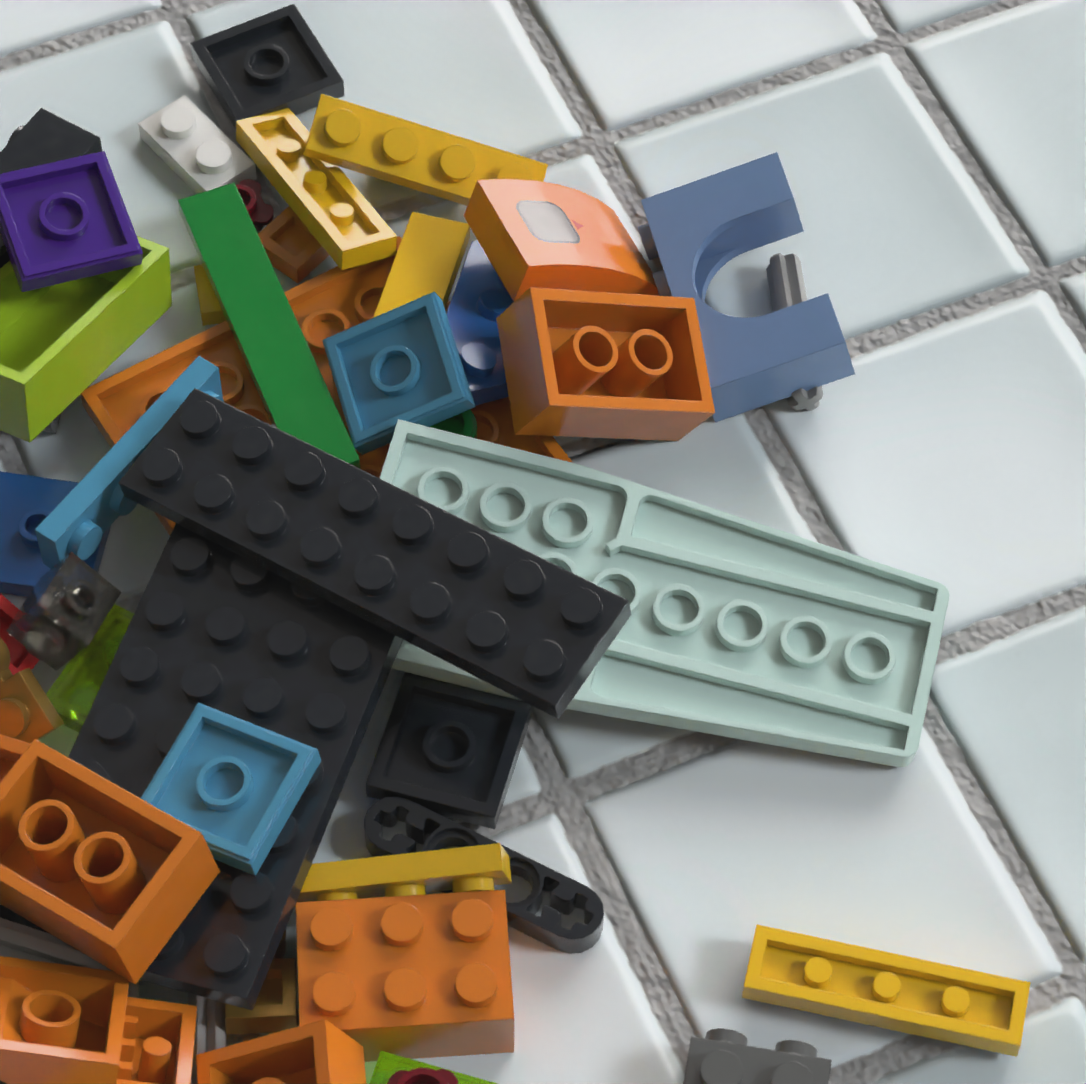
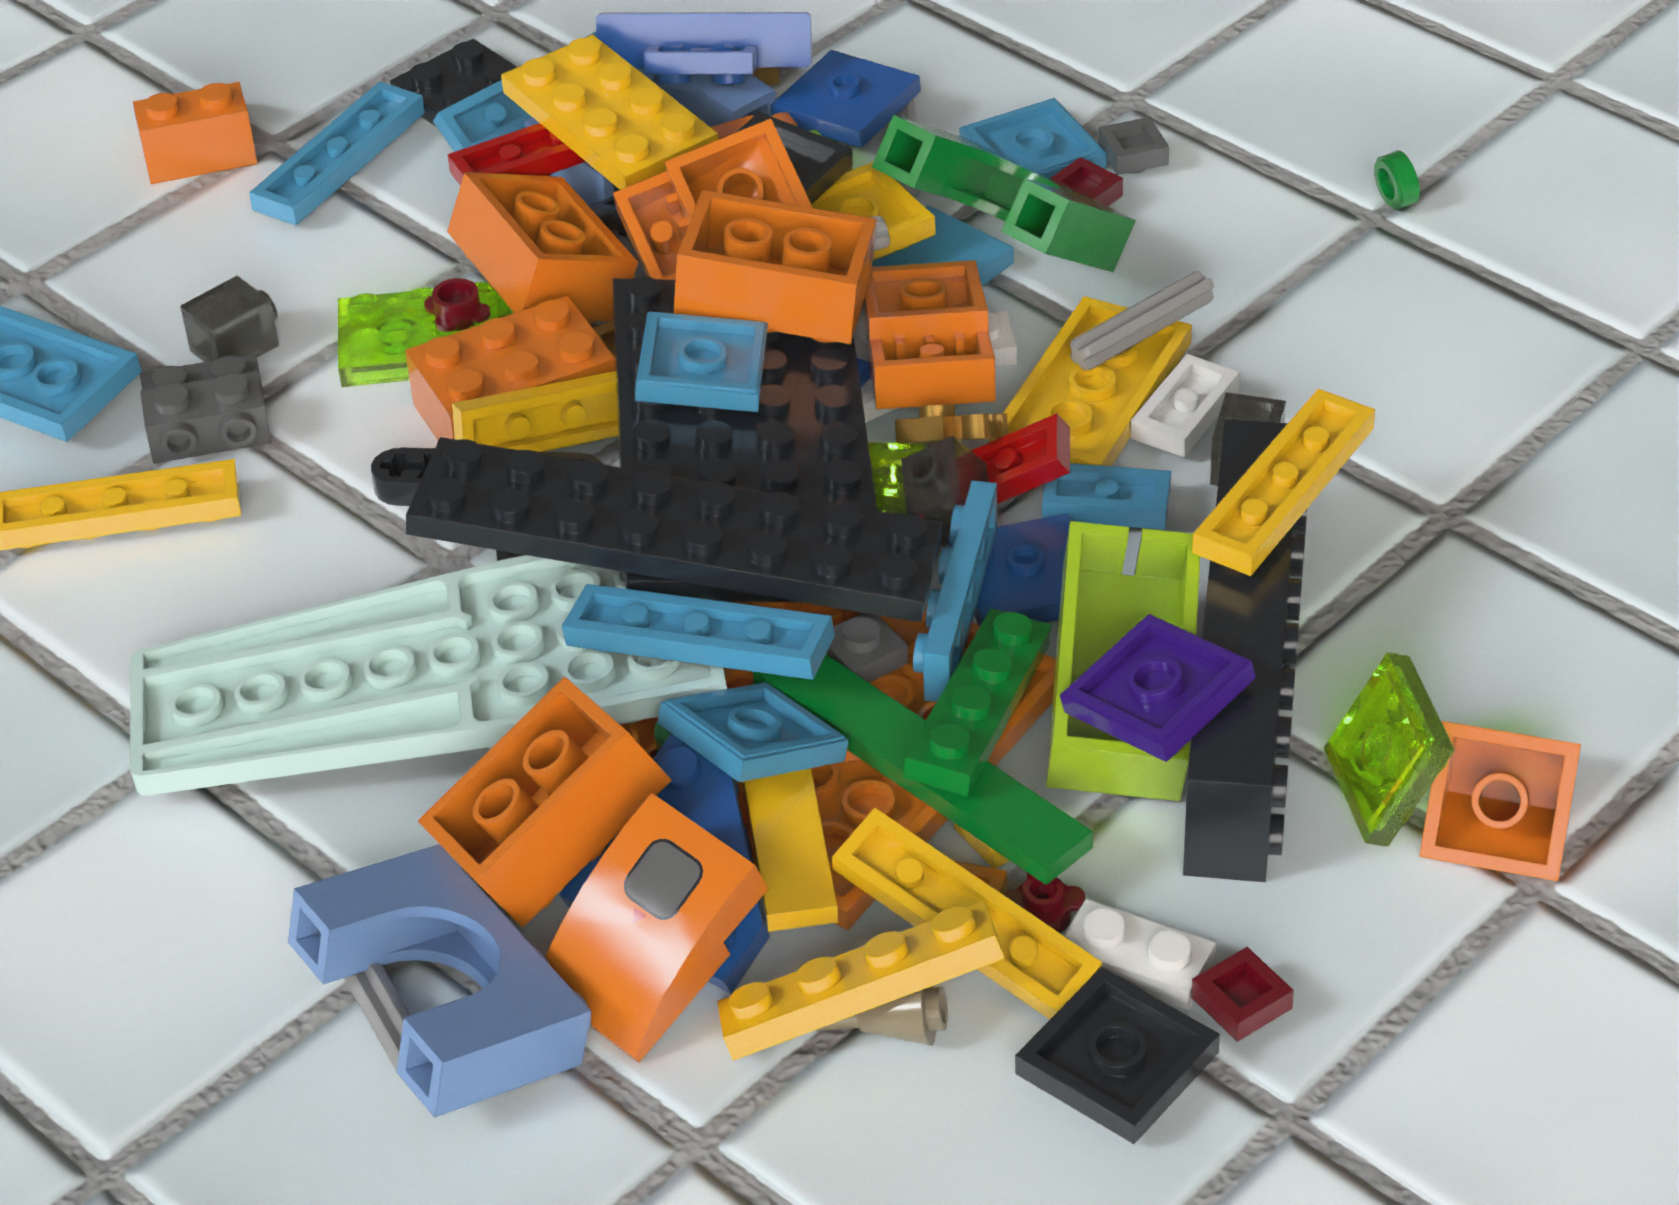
camera: 160 degrees right, 15 degrees down
(148, 78) = (1242, 994): none -> dark red plate
(204, 327) = (977, 702): none -> green plate
(394, 445) = (699, 631): none -> dark azure plate

